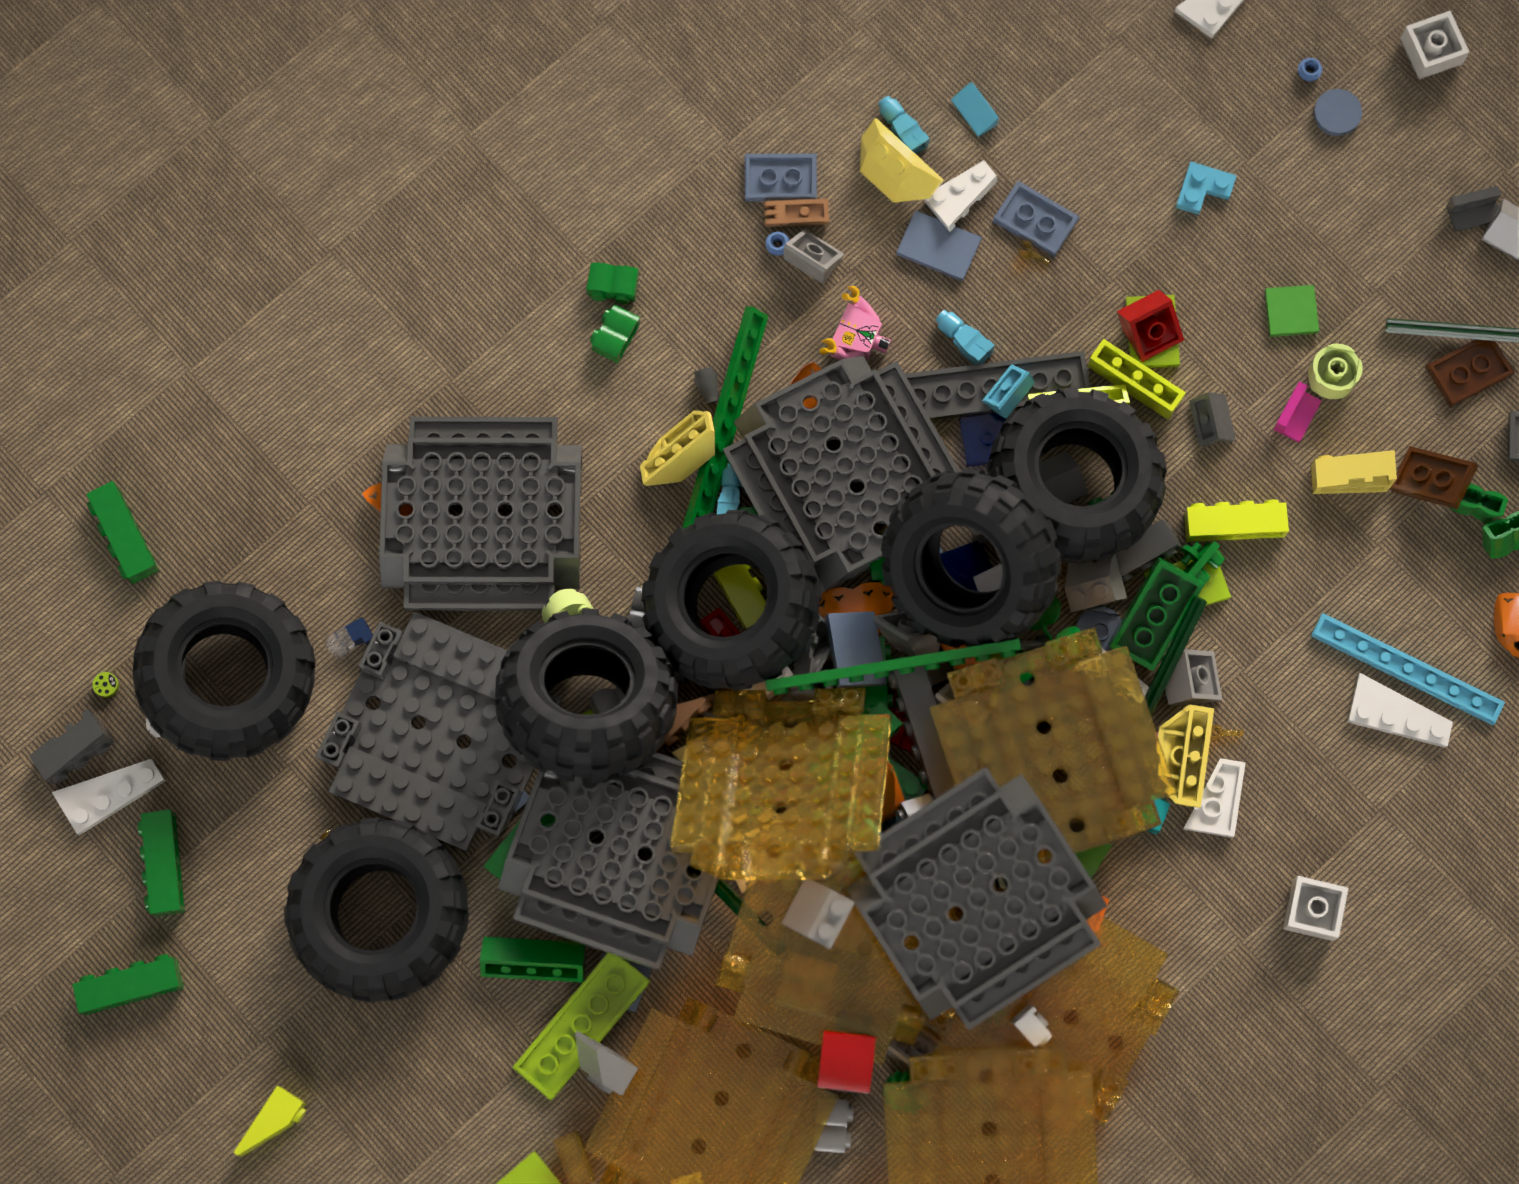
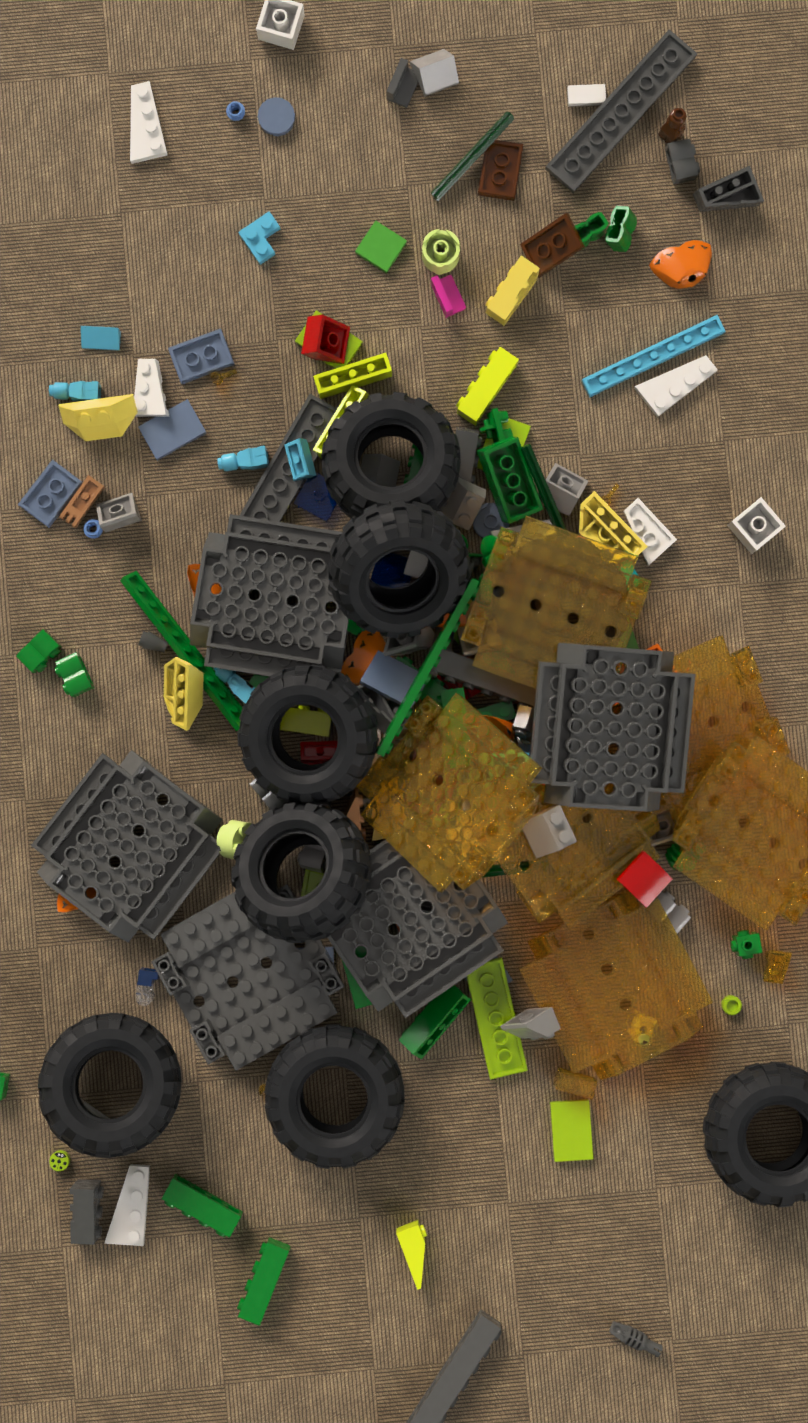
camera: 55 degrees left, 10 degrees up
(857, 331) = (189, 523): bright pink torso -> none
(1032, 1026) = (704, 750): white brick -> none
(1212, 419) = (412, 349): dark grey panel -> none

